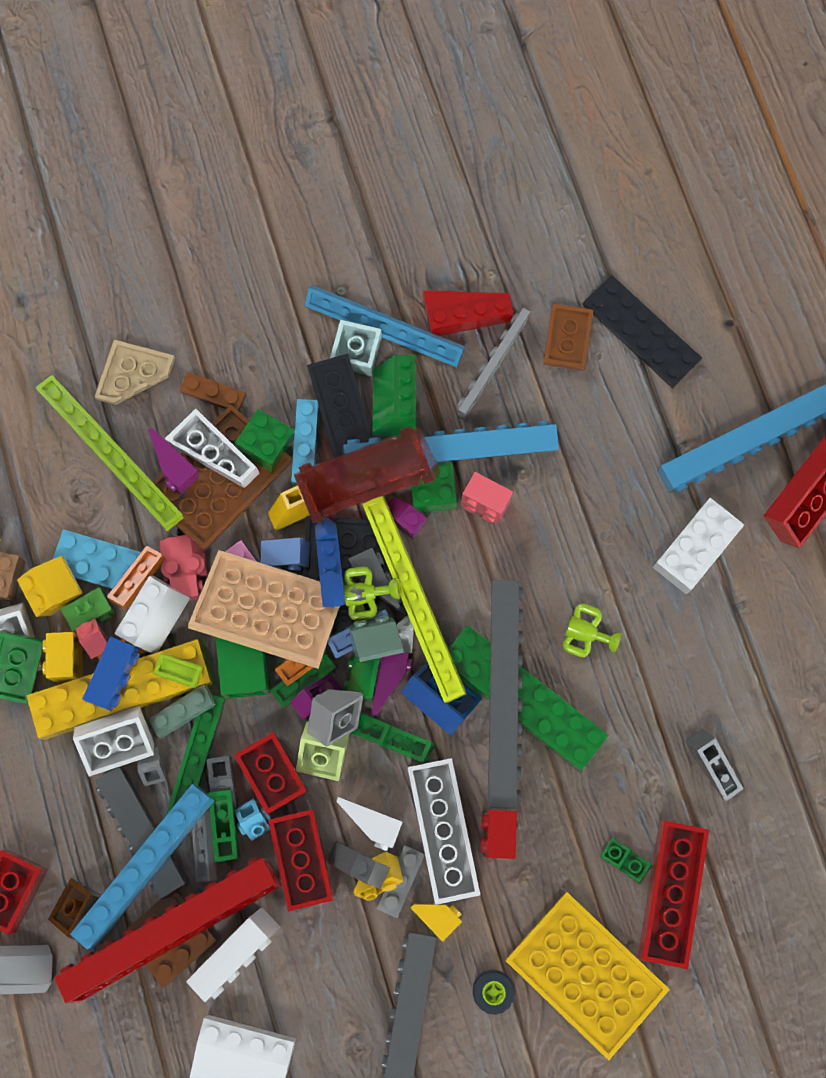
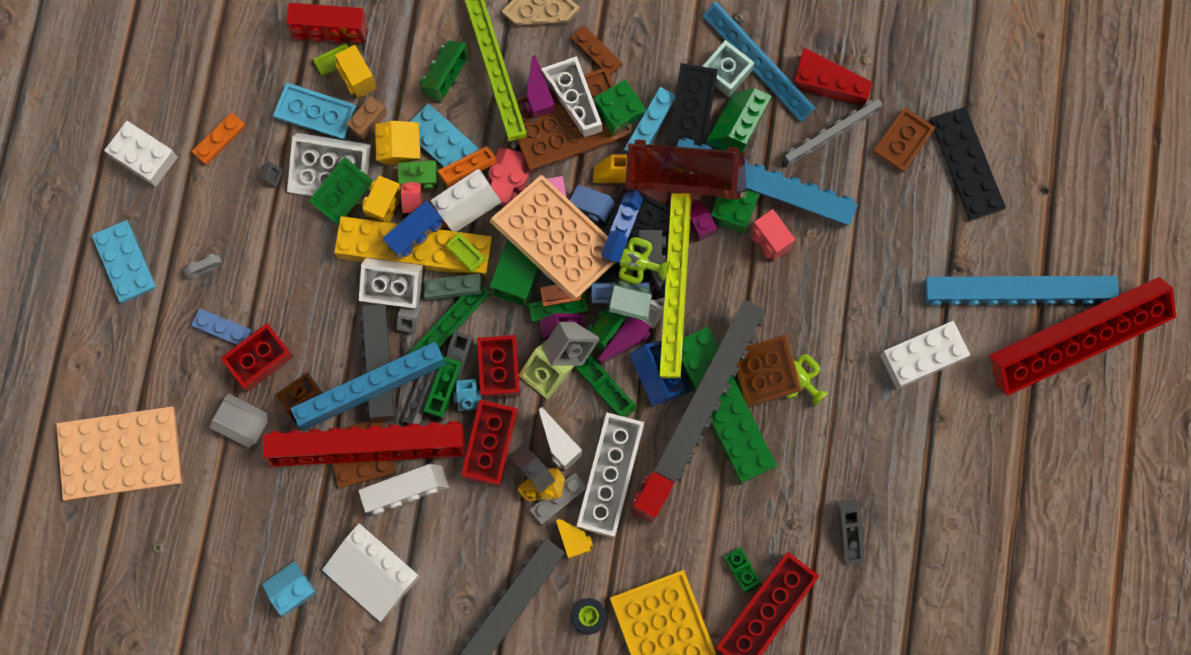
camera: 25 degrees right, 0 degrees up
(63, 487) = (444, 70): none -> green slope
(552, 641) = (768, 371): none -> dark orange plate

